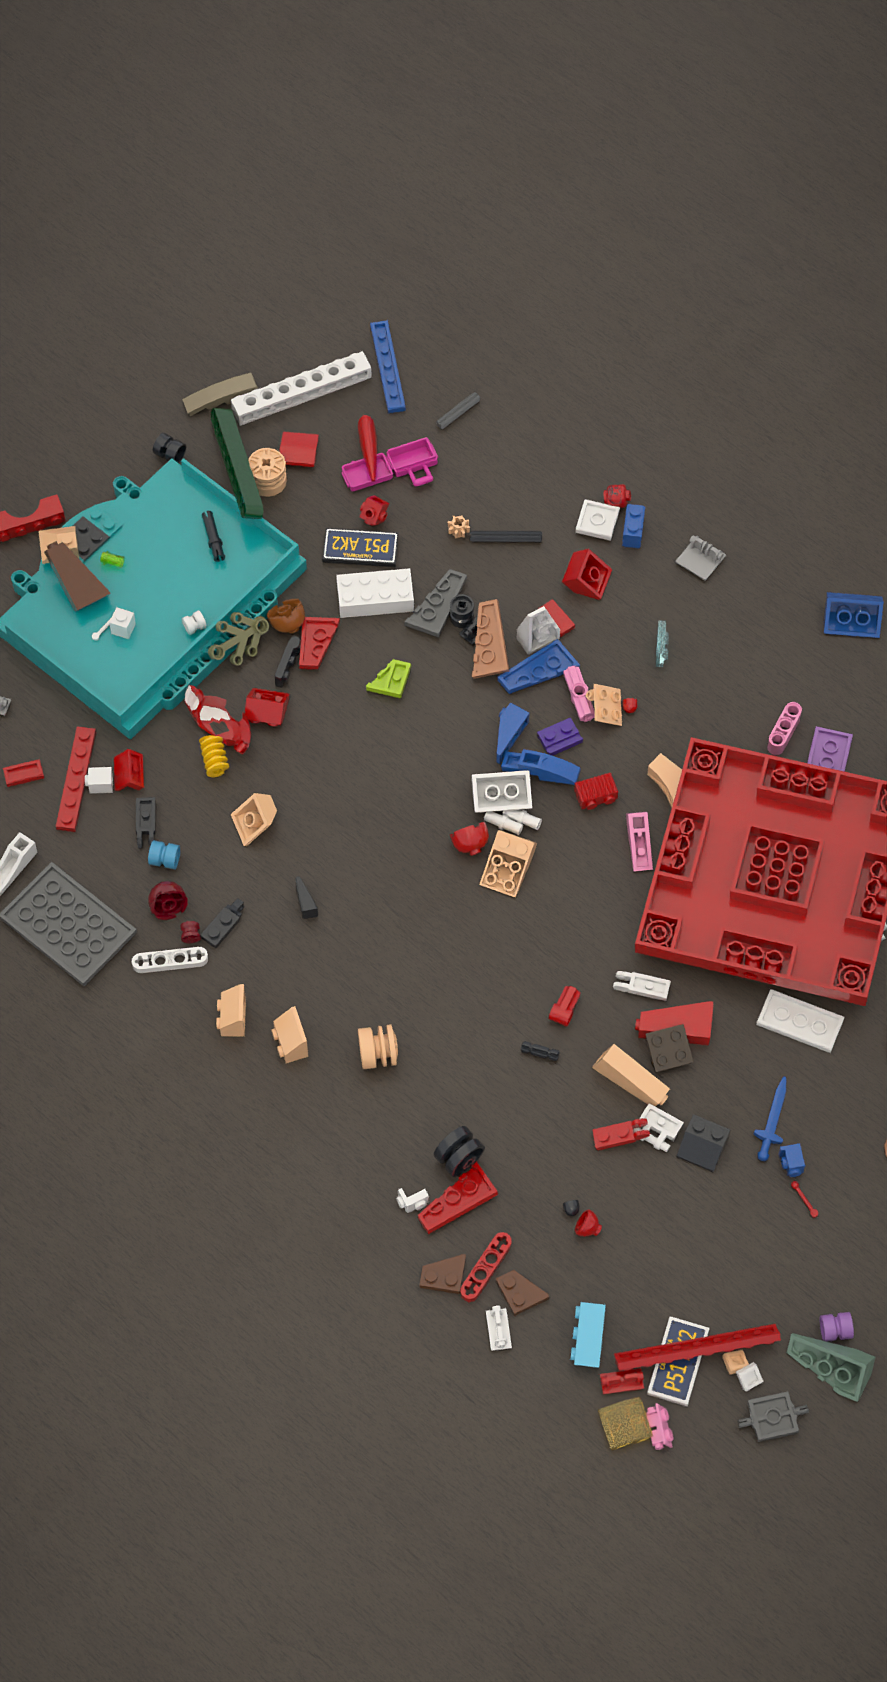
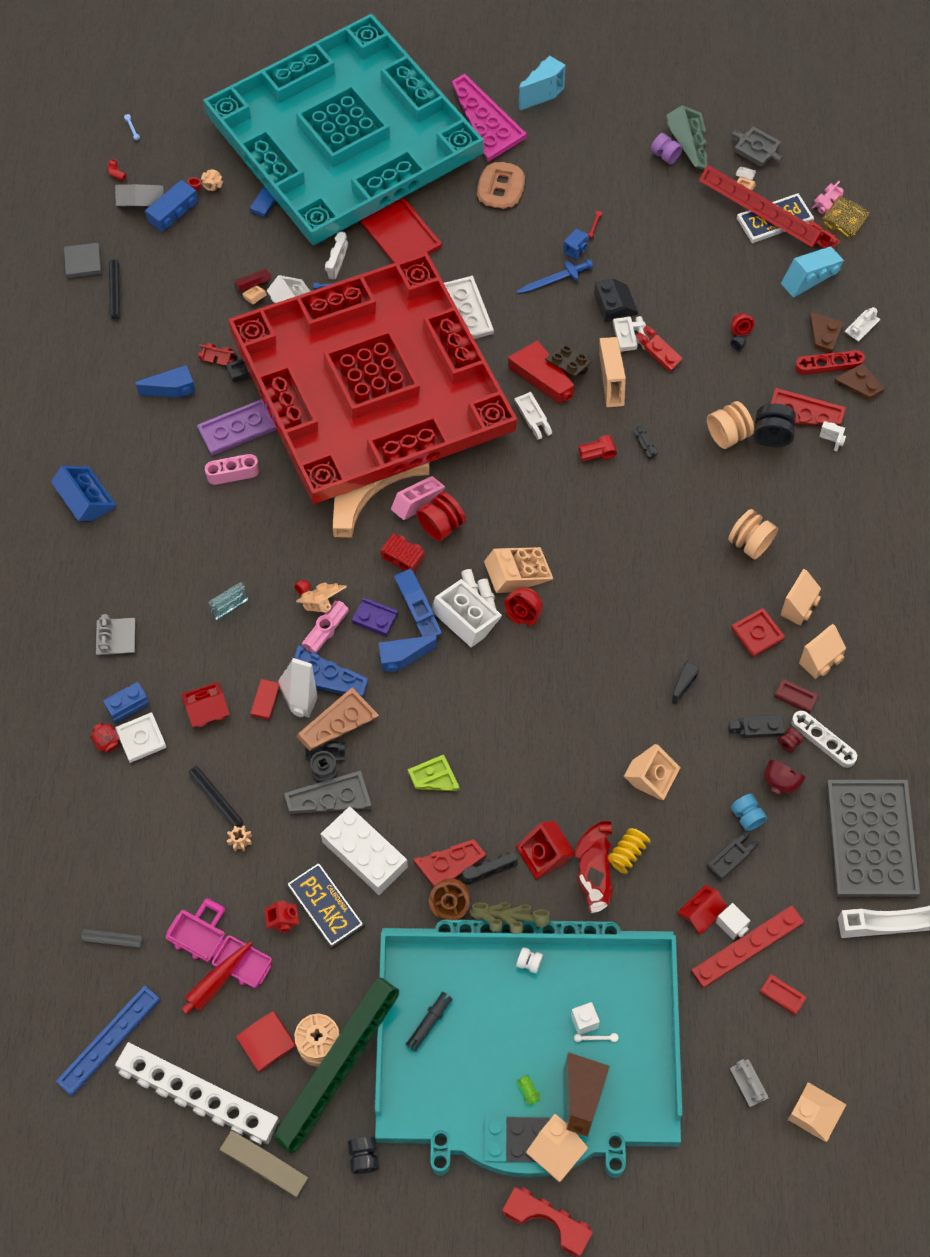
camera: 130 degrees left, 0 degrees up
(221, 972) = (796, 696): none -> dark red tile
(295, 987) = (758, 632): none -> red plate
(491, 1117) = (730, 424): none -> light nougat wheel
(601, 835) = (441, 516): none -> red wheel

